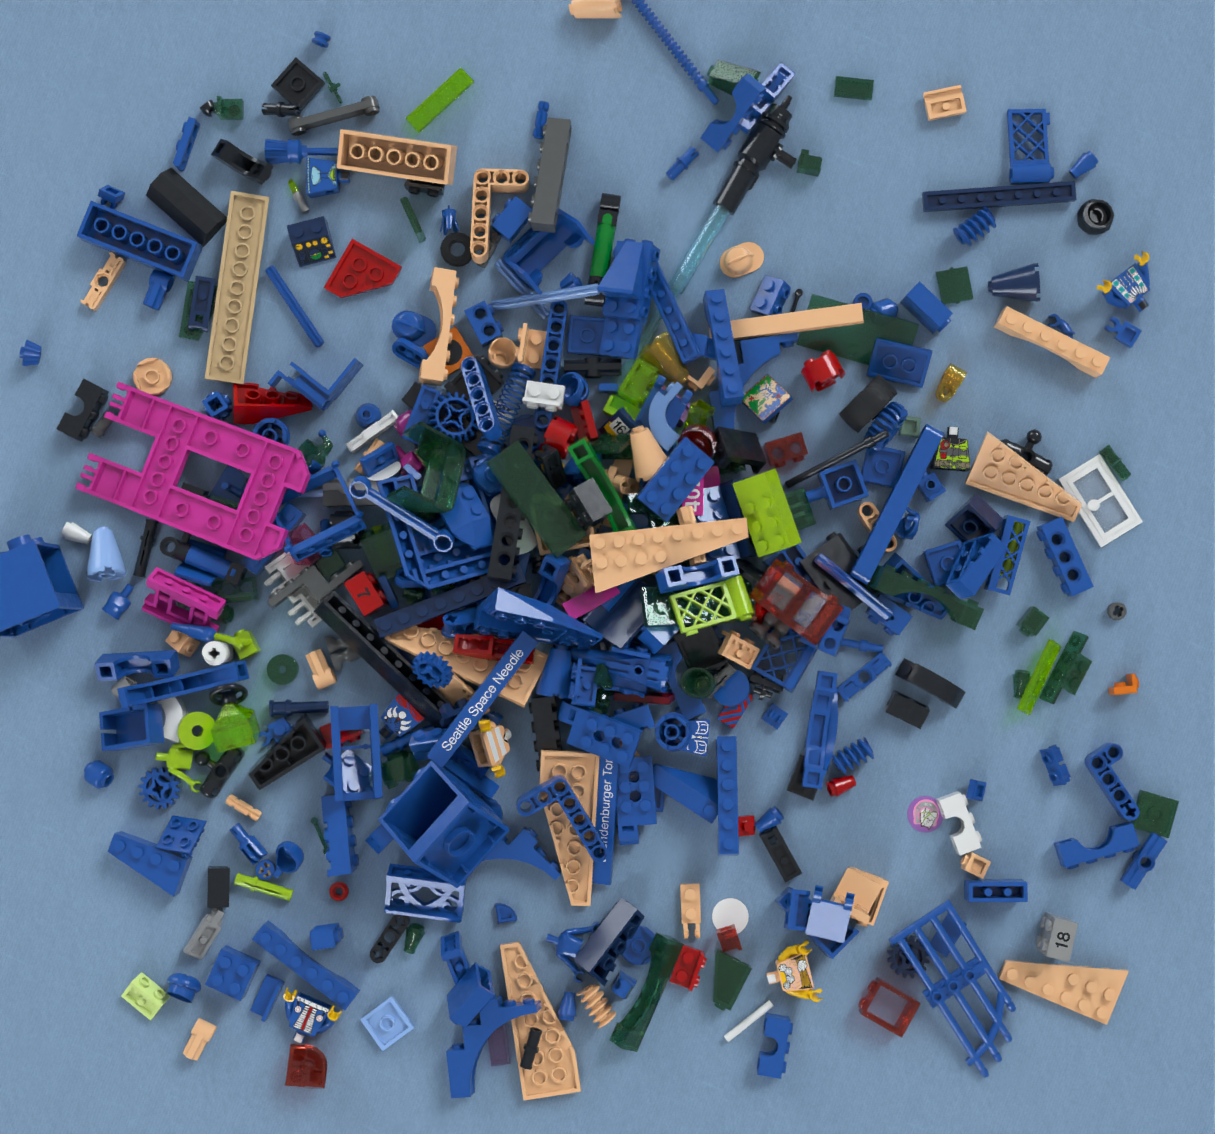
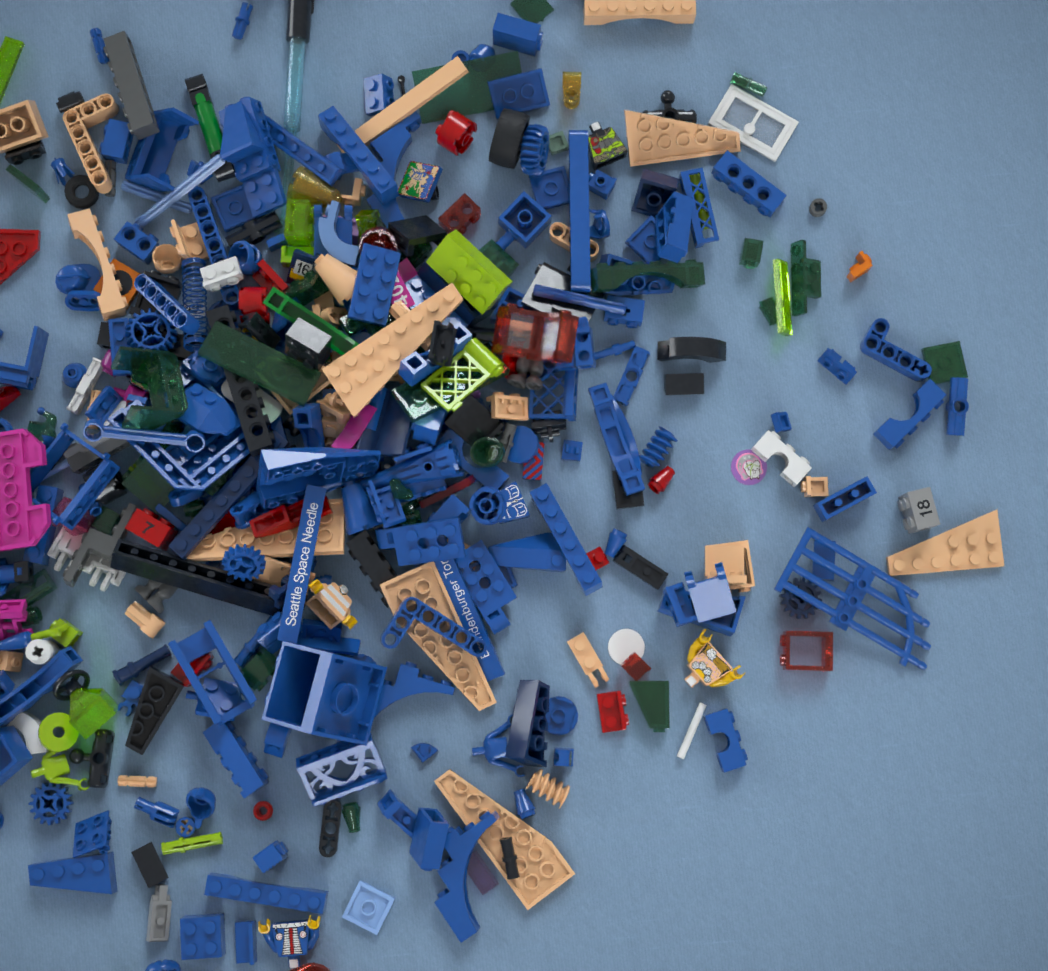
camera: 35 degrees left, 5 degrees down
(289, 663) = (103, 633): clear green piece -> none
(314, 820) = (208, 759): hinge -> none
(400, 718) = (239, 624): torso -> none
(488, 160) = (69, 101): none -> black brick
(631, 1030) = (591, 791): clear green arch -> none
(708, 571) = (442, 344): none -> black hinge
(741, 259) = (337, 76): light nougat piece -> none
(868, 442) = (526, 168): black bar -> none

